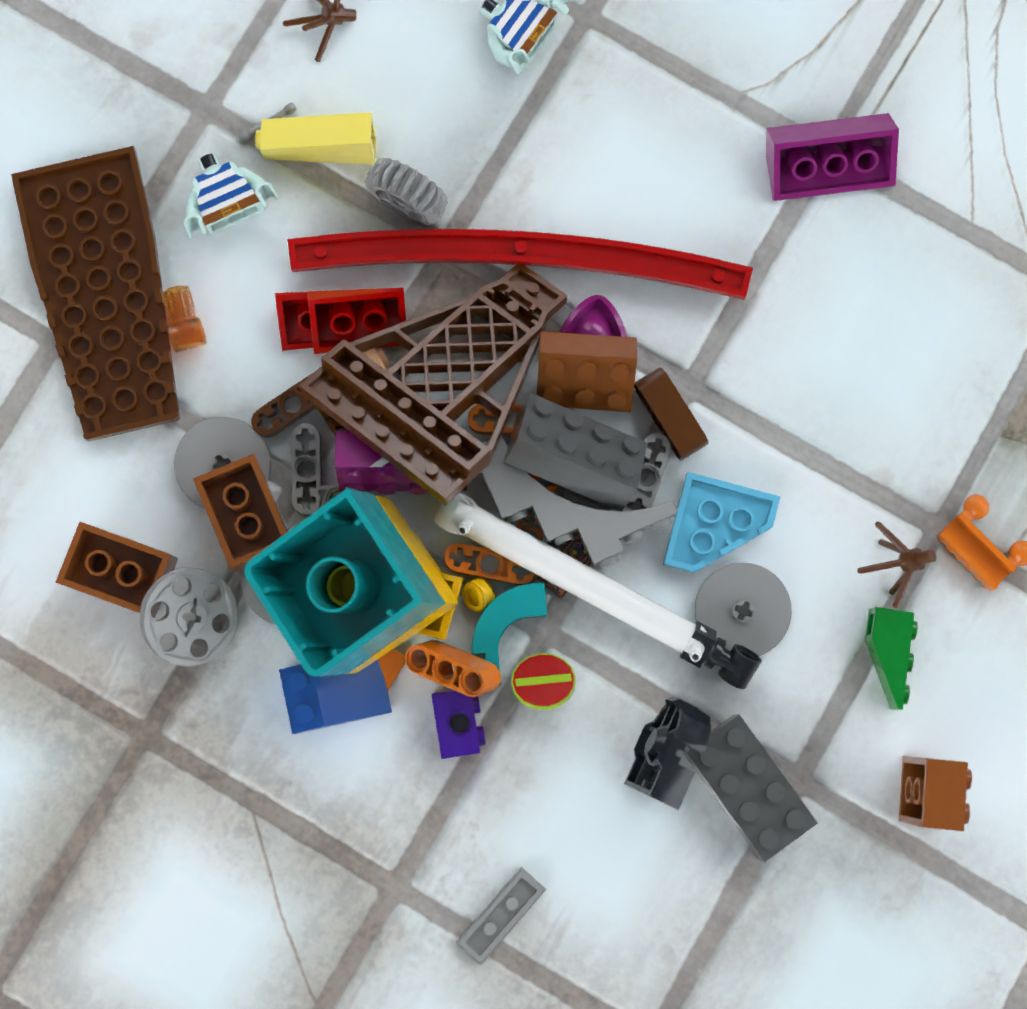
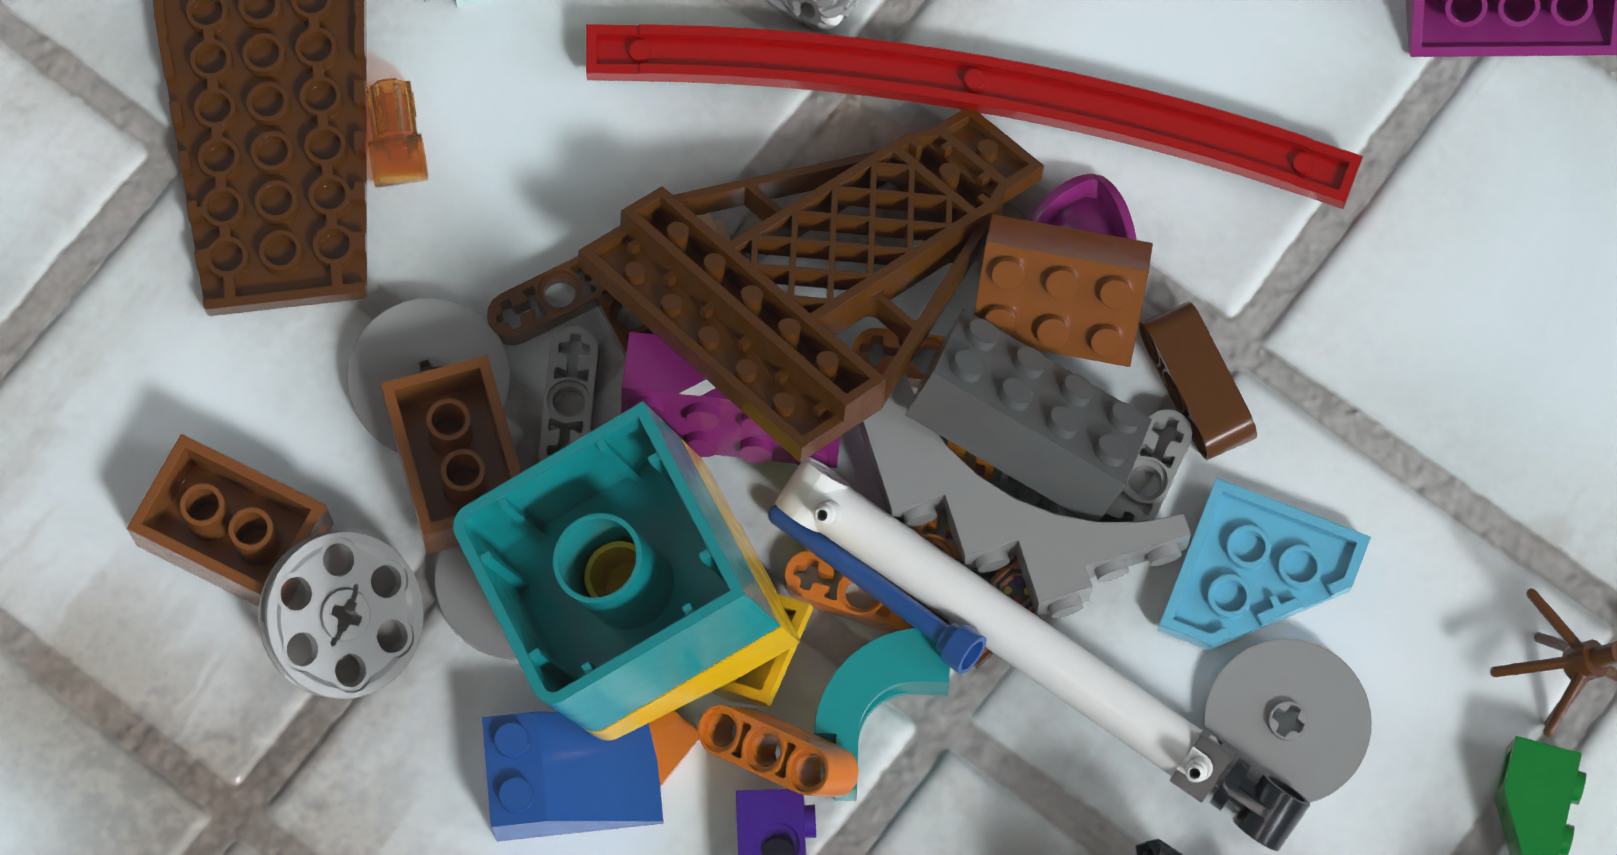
camera: 10 degrees right, 10 degrees down
(328, 317) = (624, 154): red slope -> none
(478, 594) = (833, 639): yellow tile -> none
(543, 681) = (930, 797): red piece -> none
(548, 593) = (958, 644): none -> blue piece

